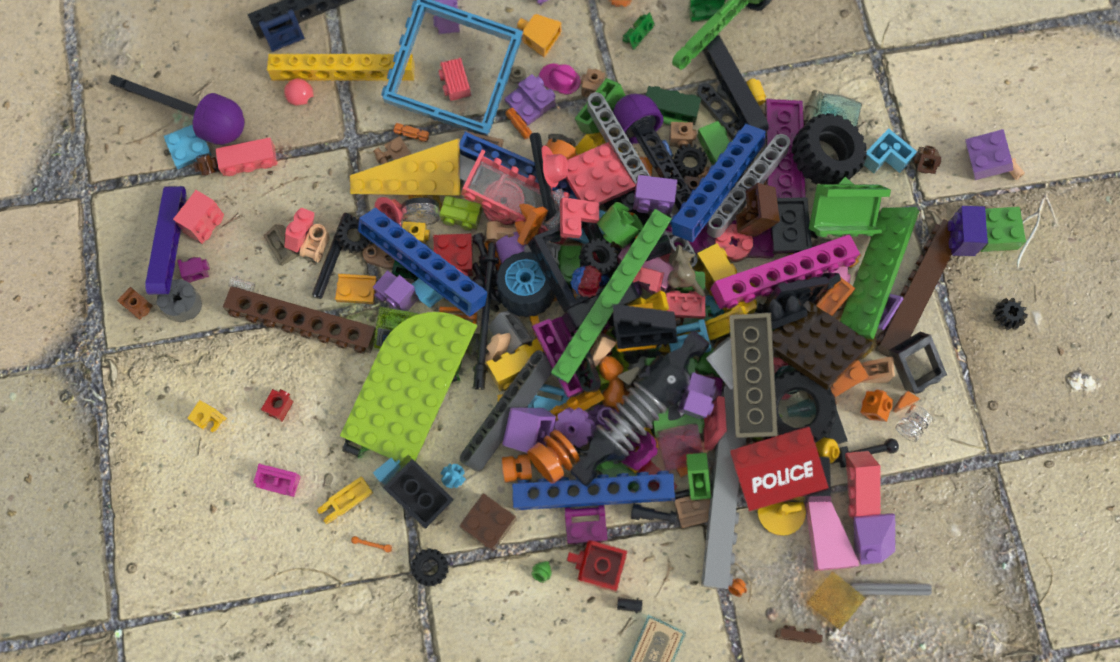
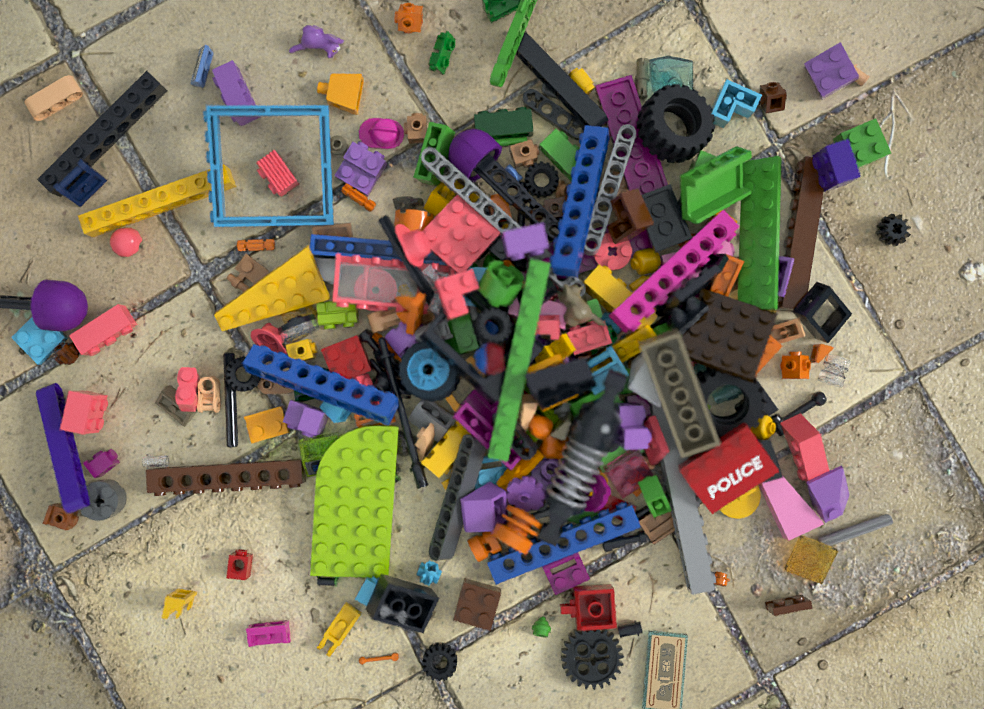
camera: 25 degrees left, 15 degrees up
(576, 636) = (592, 674): none -> black gear
(760, 257) = (645, 261): none -> yellow head

